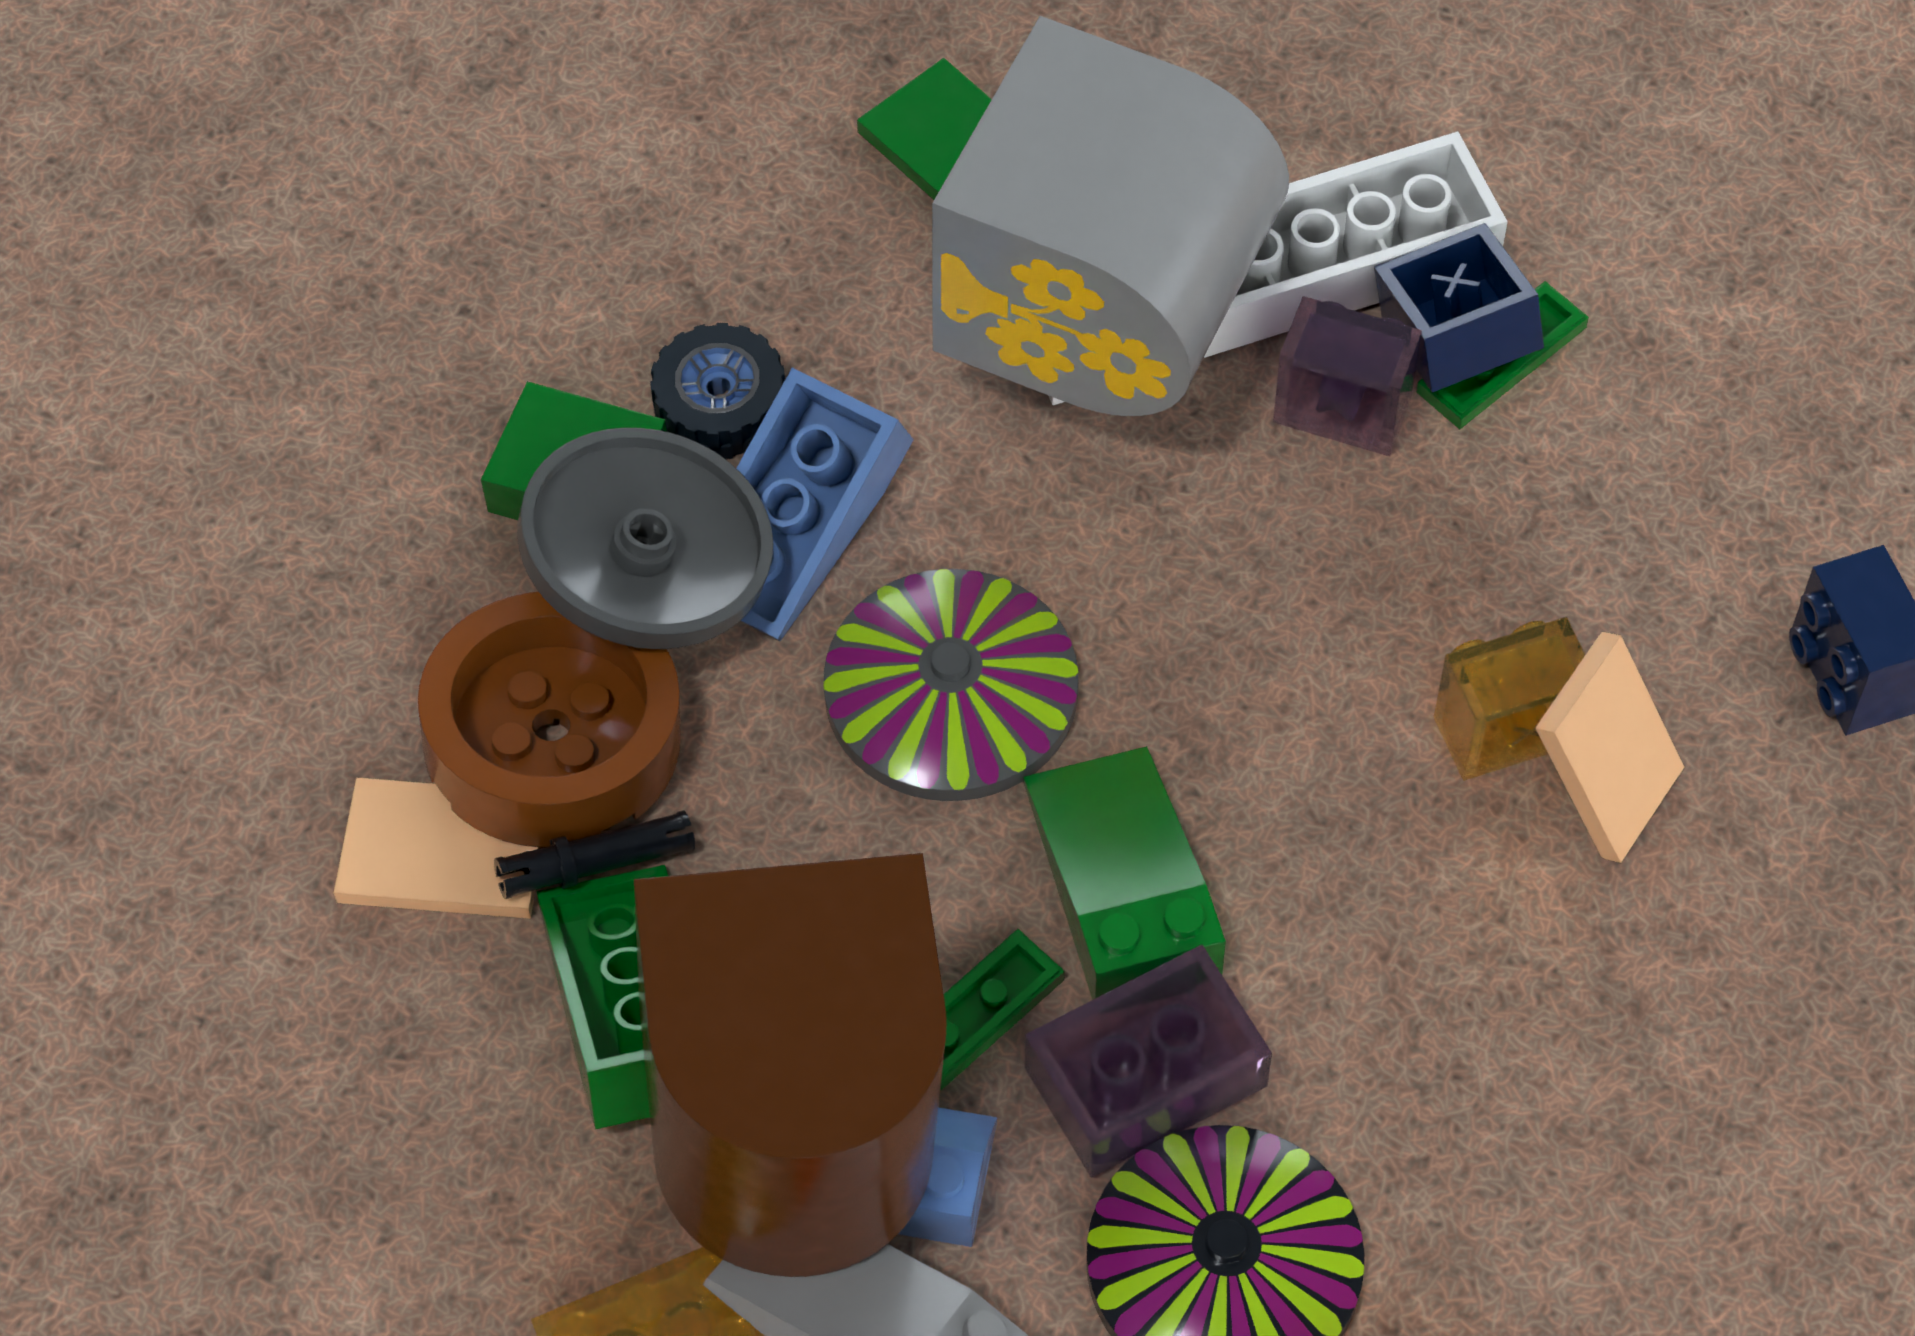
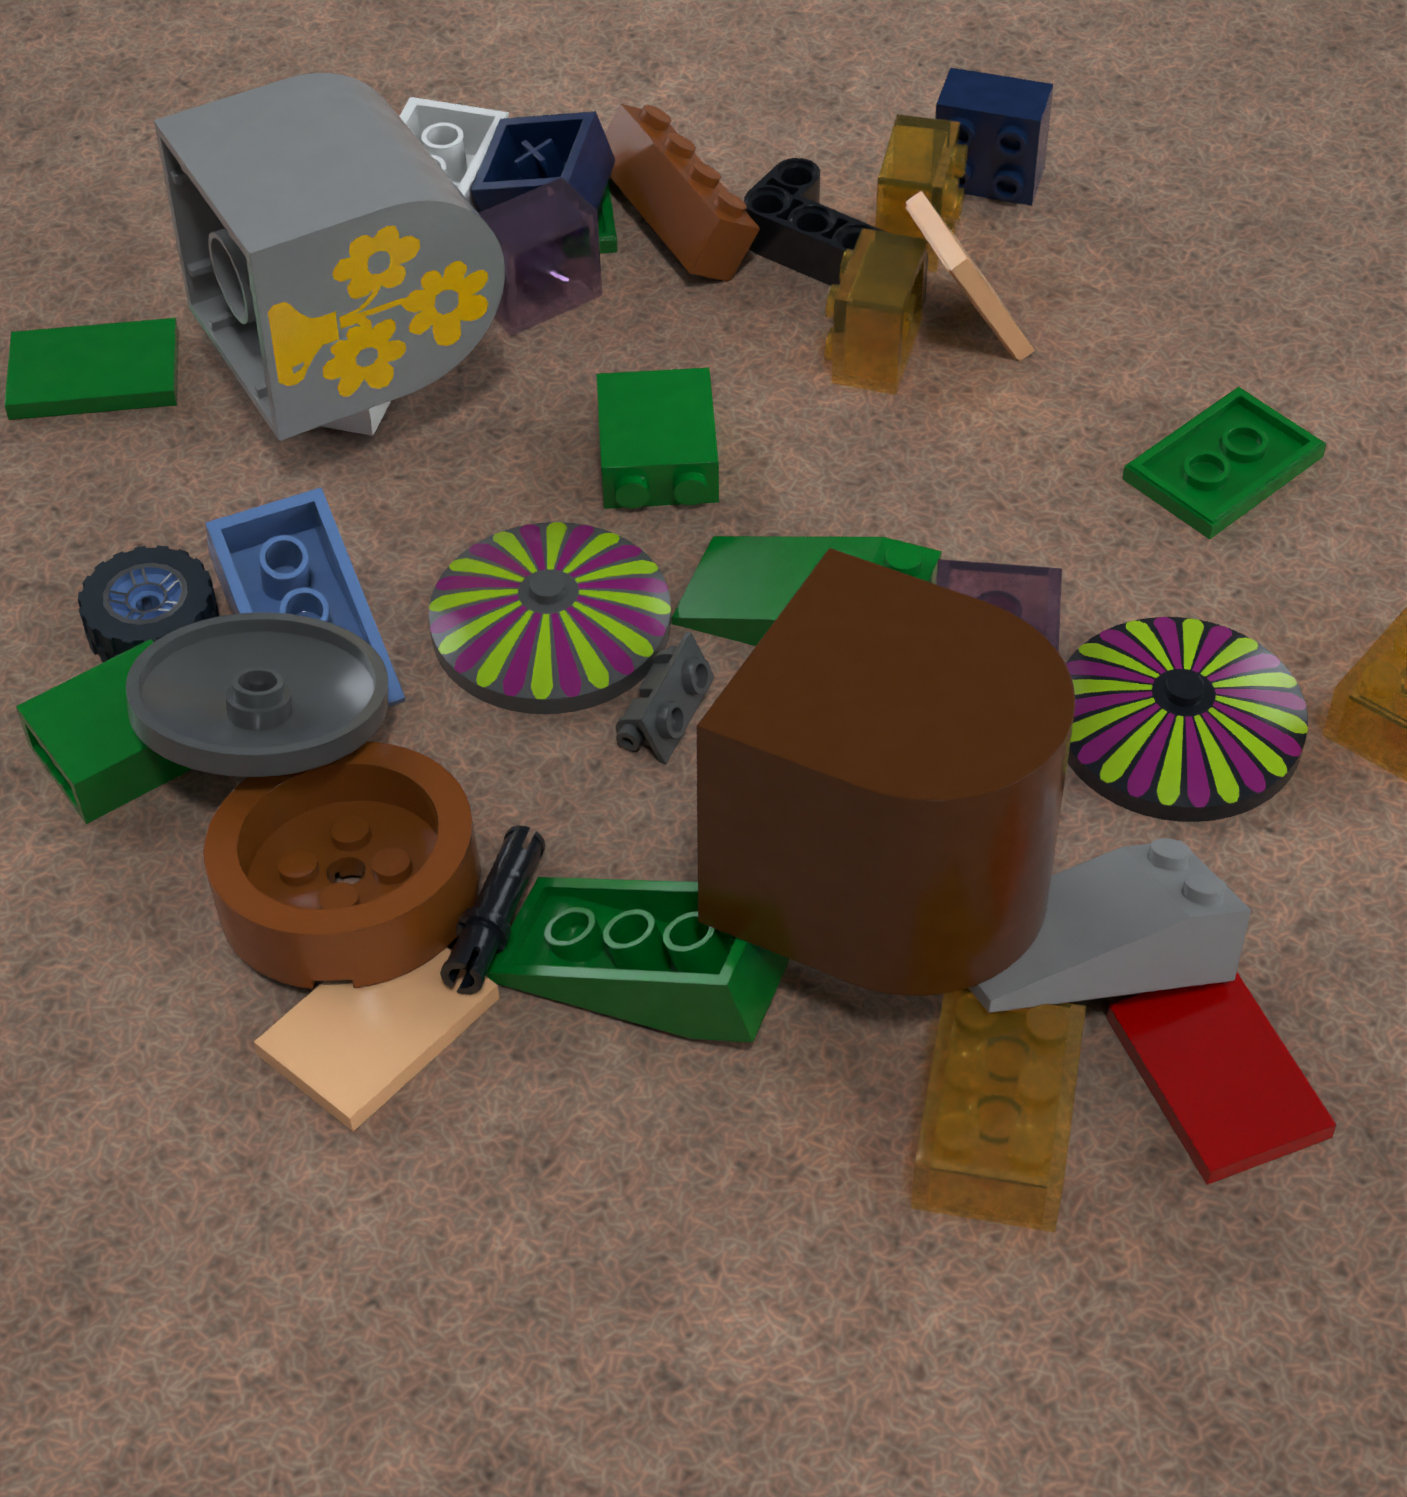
camera: 55 degrees left, 10 degrees down
(940, 830) = (669, 700): none -> dark grey hinge
(1216, 625) = (657, 438): none -> green brick
(1548, 425) = (679, 193): none -> dark orange brick
(1602, 1117) = (1223, 462): none -> green tile
(1608, 551) = (797, 227): none -> black beam
(1717, 627) = (924, 158): none -> clear yellow brick

